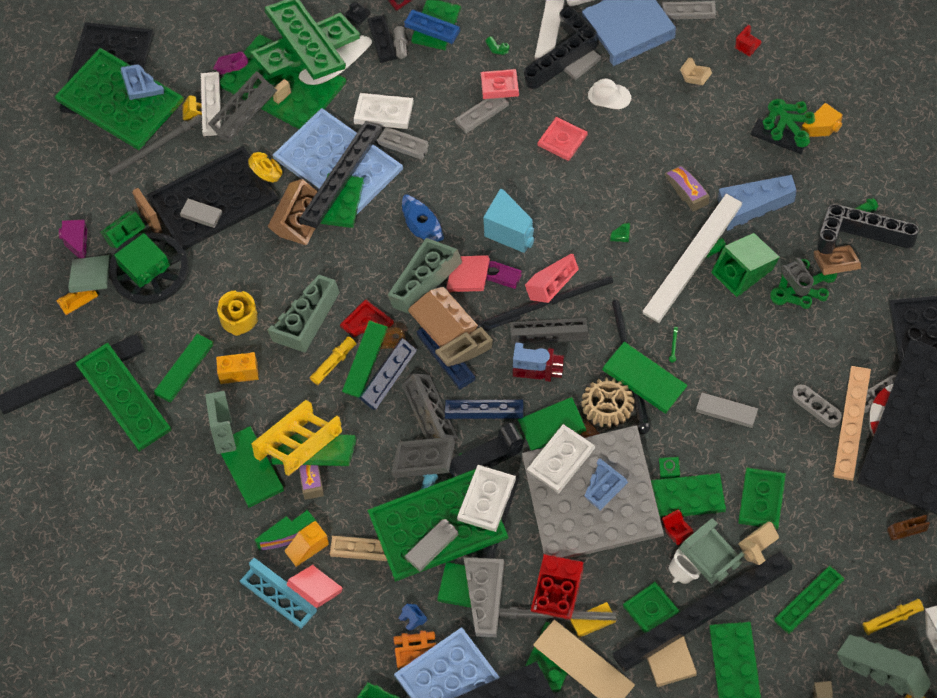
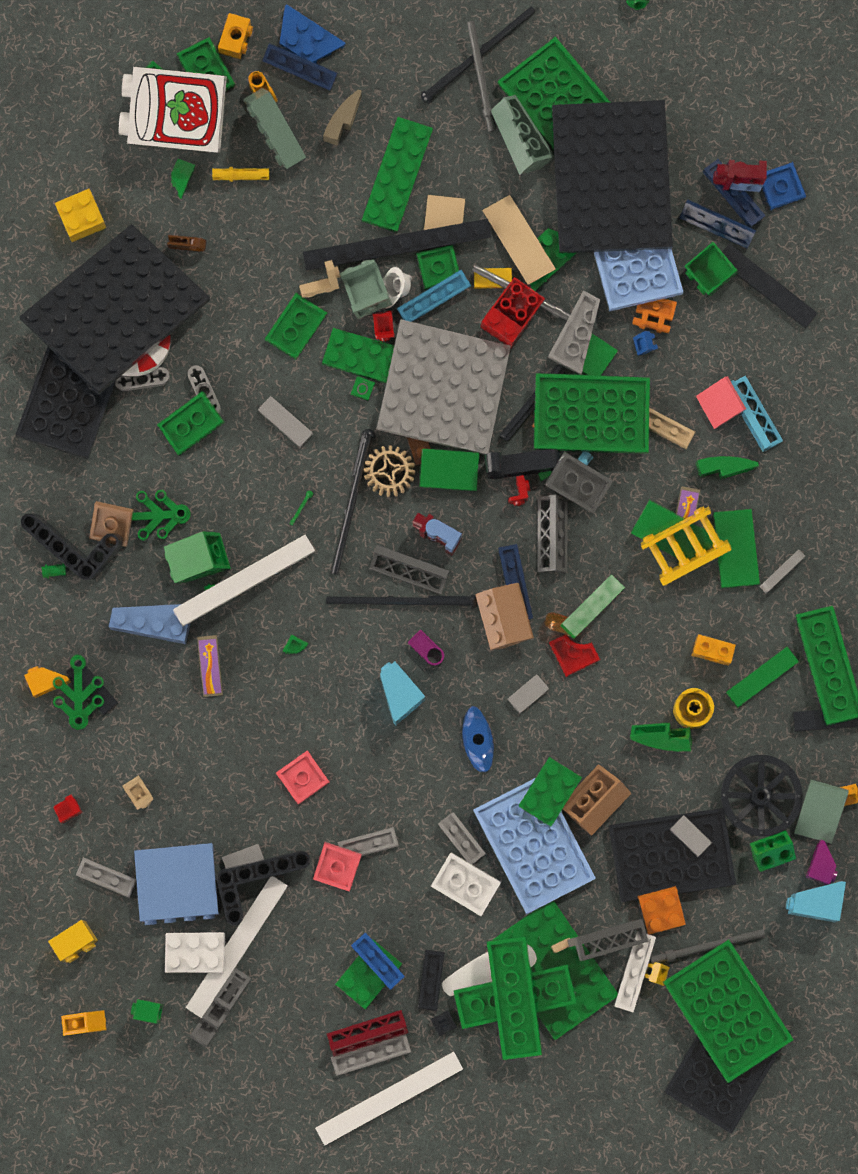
camera: 165 degrees left, 20 degrees up
(69, 201) = (818, 903): none -> medium azure slope
(139, 83) = (703, 1013): medium blue wing -> none
(142, 260) = (767, 796): green piece -> none
(147, 211) = (743, 857): medium nougat tile -> none
(196, 461) = (782, 571): none -> light grey beam
(205, 153) = (661, 910): none -> orange plate
(220, 422) = (752, 607): sand green panel -> none
(231, 63) = (601, 1011): magenta piece -> none
(258, 280) = (662, 737): none -> green slope
(264, 167) = (609, 863): yellow plate -> none
(304, 318) = (631, 676): sand green wedge -> none
(306, 543) = (712, 447): light orange slope -> none
(339, 353) = (621, 623): yellow pin -> none
(340, 175) = (539, 814): black tile -> none
(387, 374) = (576, 586): plate -> none
(392, 273) = (528, 694): none -> light grey tile
(400, 42) = (415, 963): light grey axle -> none
(423, 273) = (500, 674): sand green wedge -> none
(431, 545) = (606, 391): light grey hinge -> none
(465, 347) = (497, 577): dark tan slope -> none
(469, 274) = (459, 660): coral tile -> none
(472, 430) = (522, 487): none -> red bracket
(483, 409) = (503, 512): dark blue plate -> none
(486, 498) = (541, 411): white plate -> none
(495, 48) = (320, 914): green arm -> none
(549, 281) = (386, 617): coral slope -> none
(561, 458) = (458, 424): white plate -> none
(604, 485) = (432, 381): medium blue wing -> none
(609, 94) = (233, 809): white piece -> none
(642, 576) = (434, 296): none -> dark azure tile
(644, 377) = (345, 480): green tile -> none
(796, 273) = (157, 520): dark grey piece -> none
(809, 599) = (301, 219): green tile -> none
(813, 371) = (190, 423): none -> green tile
(852, 423) = (182, 358): light nougat plate -> none

